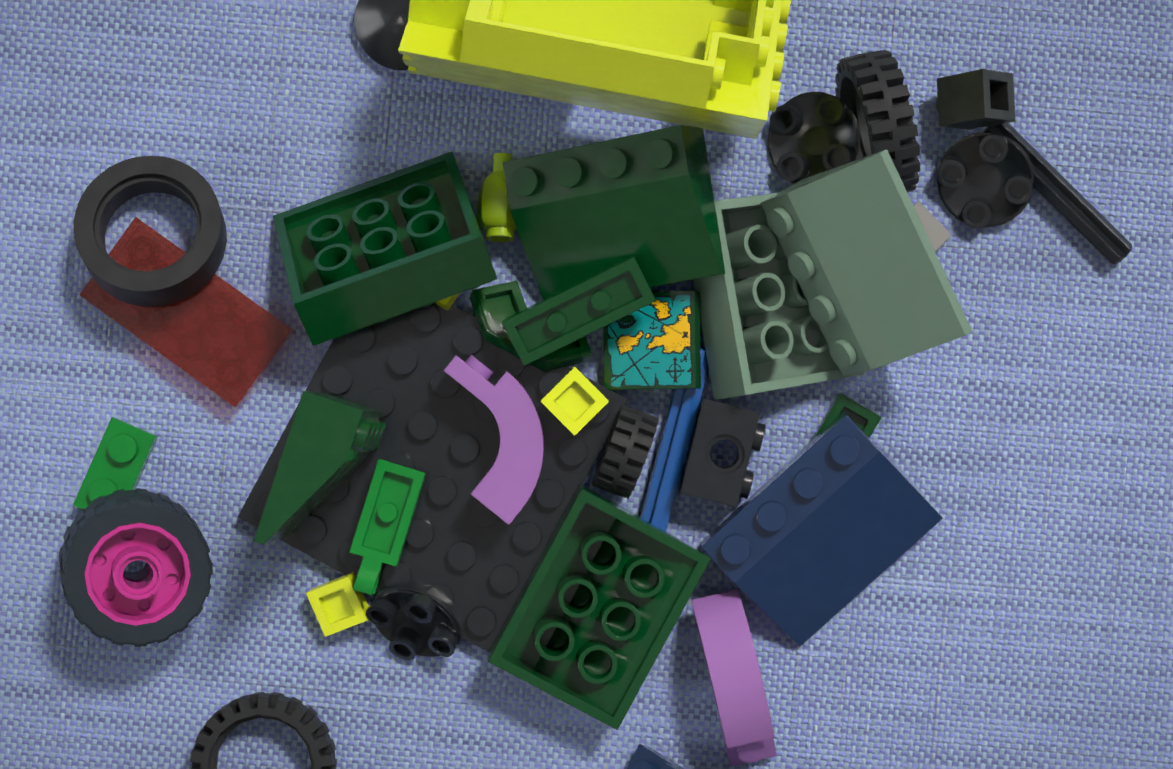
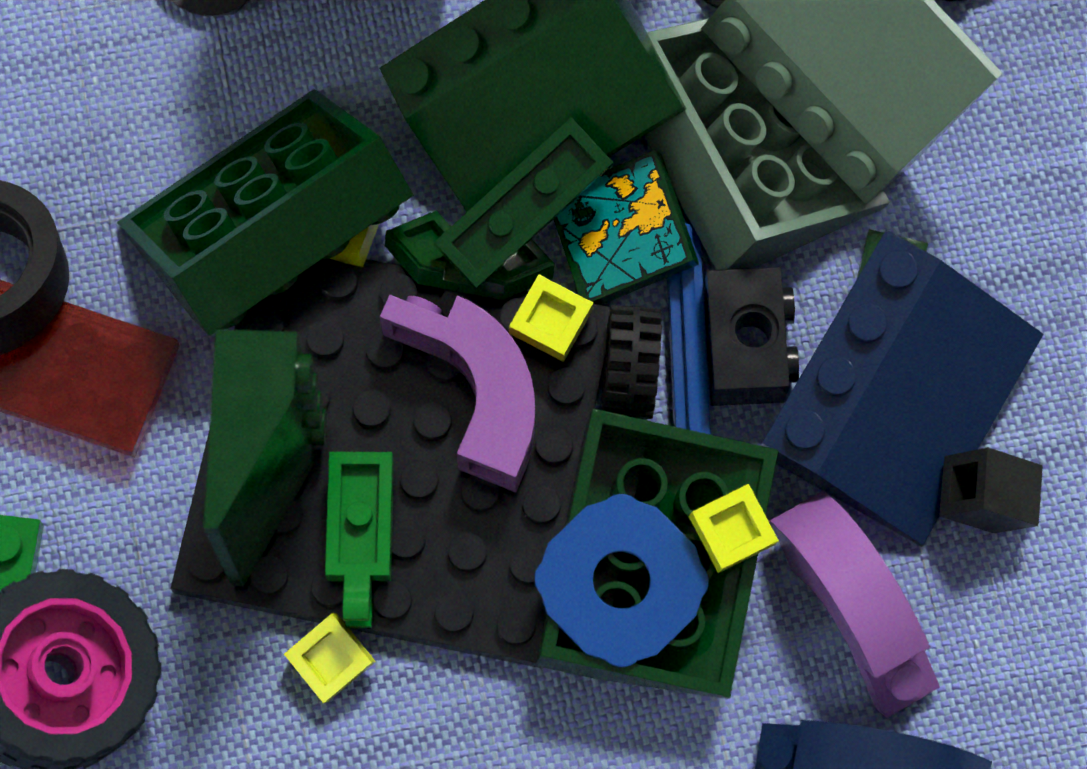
camera: 15 degrees left, 15 degrees down
(414, 623) = (432, 648): black dish -> none
(493, 204) = (384, 118): lime plant -> none
(568, 664) = (610, 632): none -> blue piece
(656, 613) = (733, 528): none -> neon yellow plate
(861, 628) = (991, 490): none -> pearl dark grey brick

